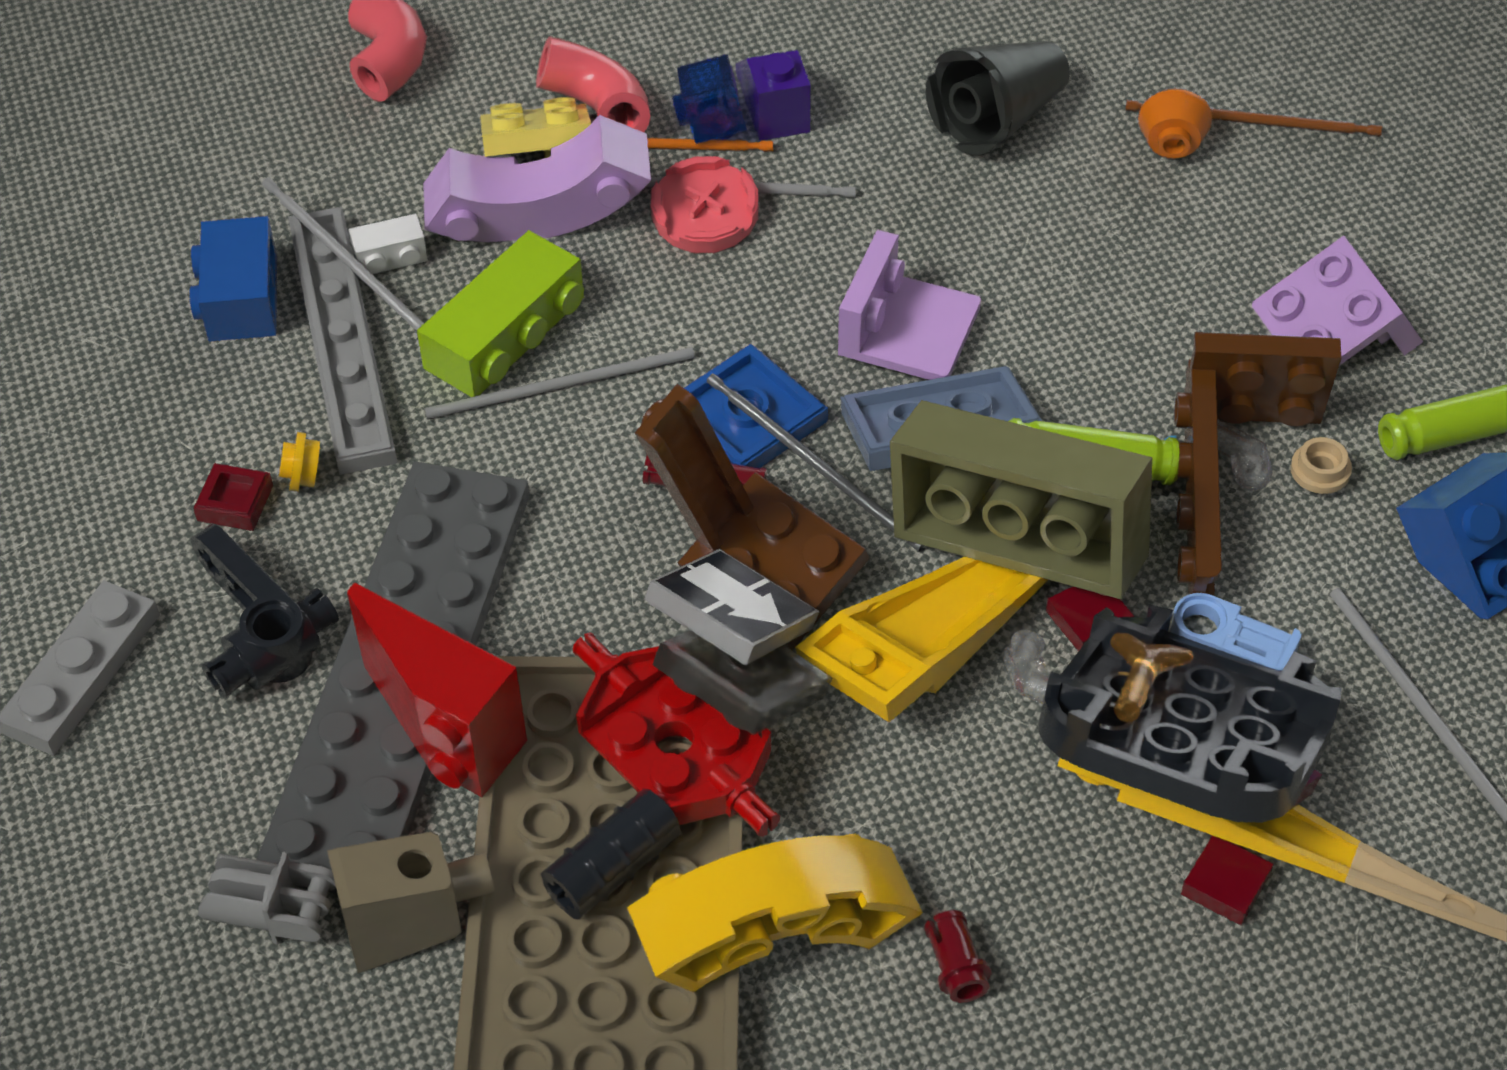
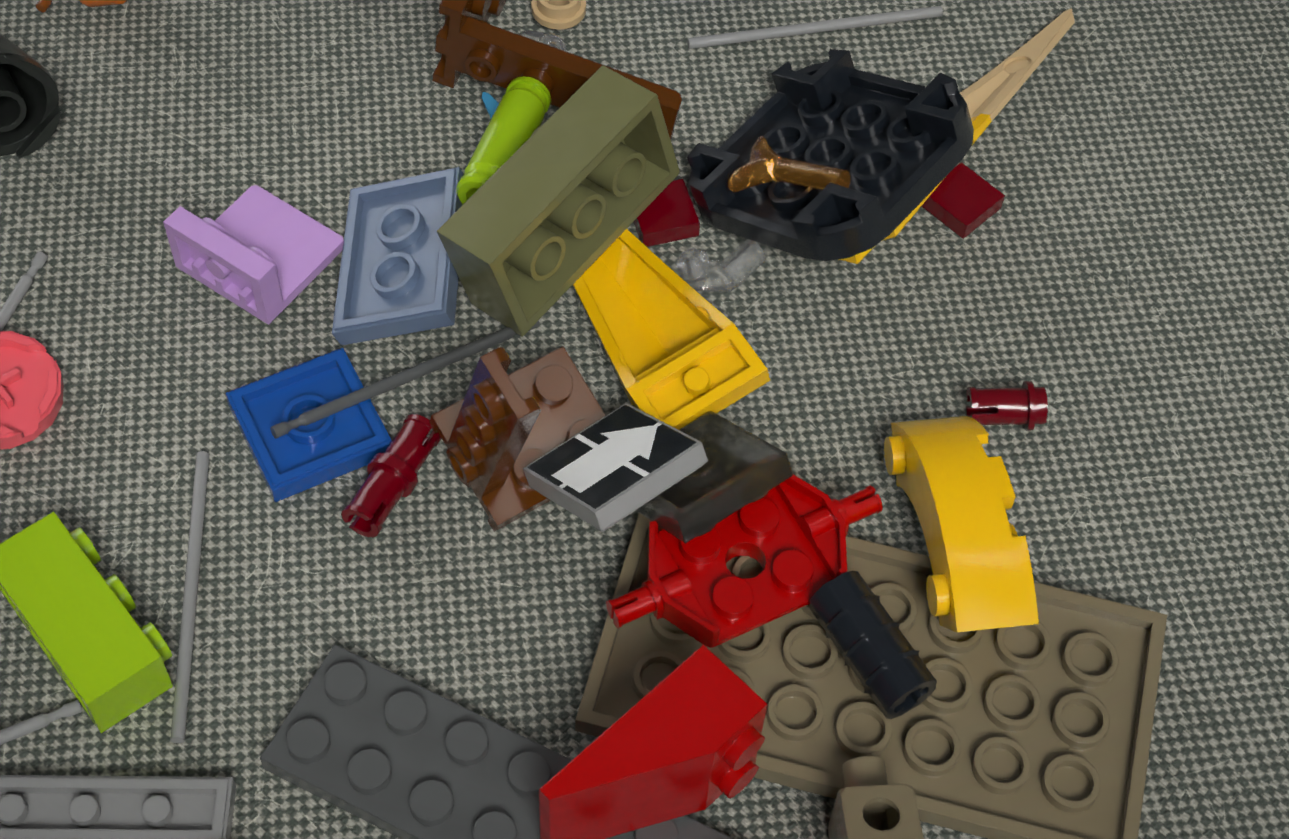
camera: 80 degrees left, 5 degrees up
(1235, 632) = (722, 114): light blue piece -> none

